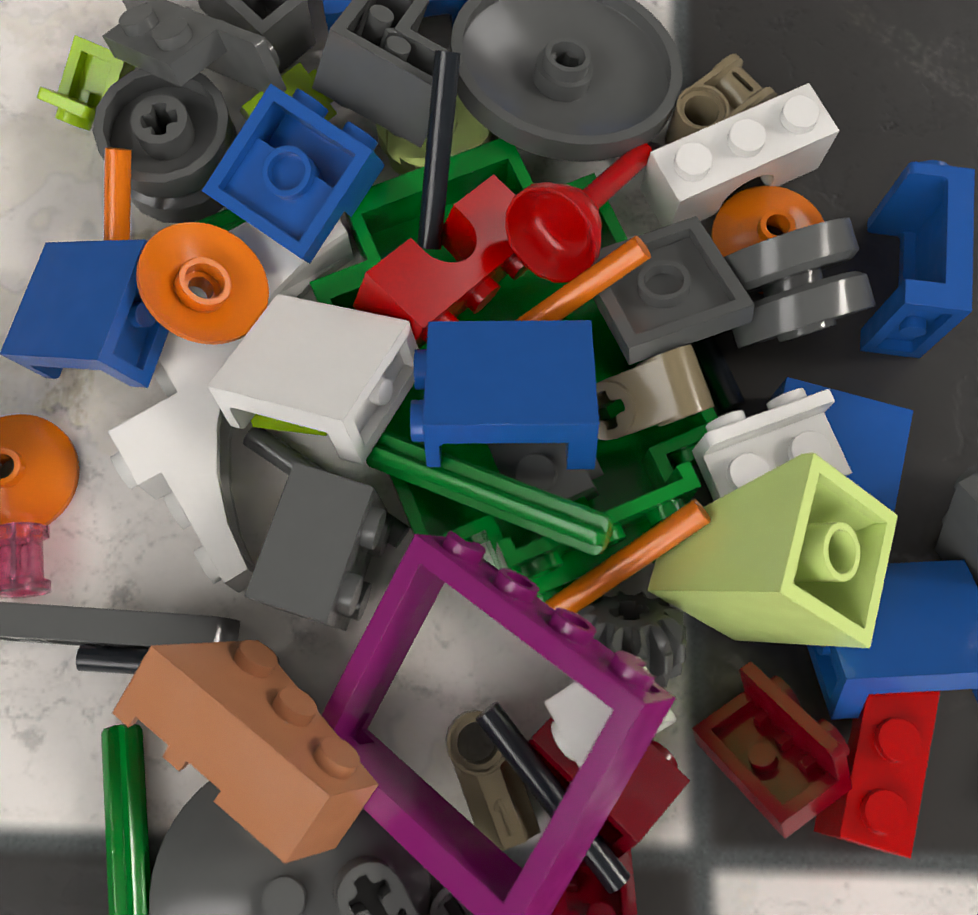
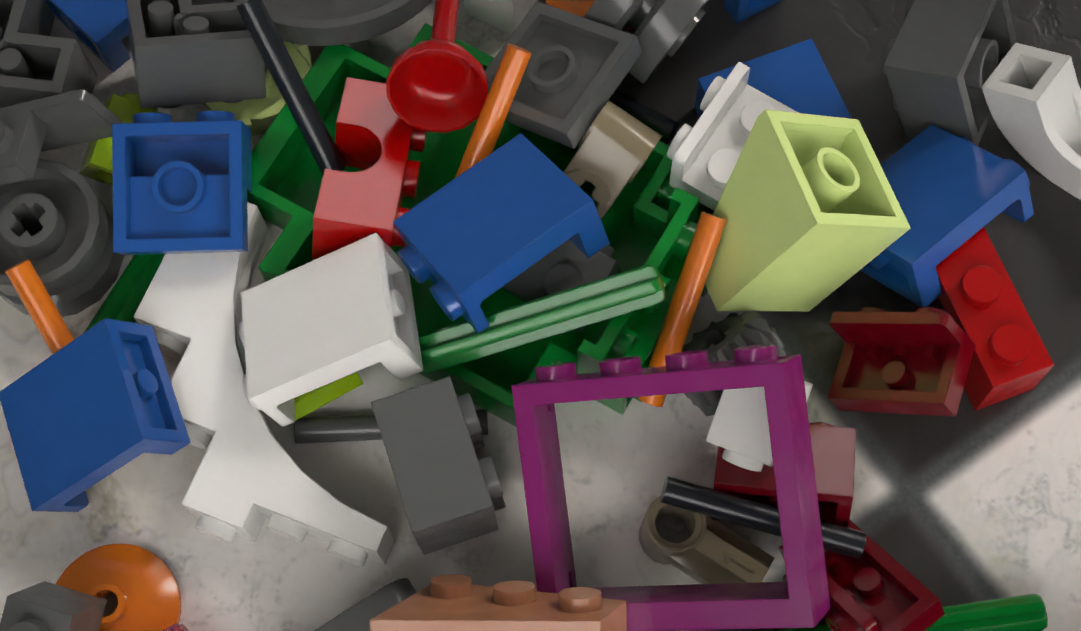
camera: 30 degrees left, 5 degrees down
(212, 261) = (176, 323): orange dish -> none

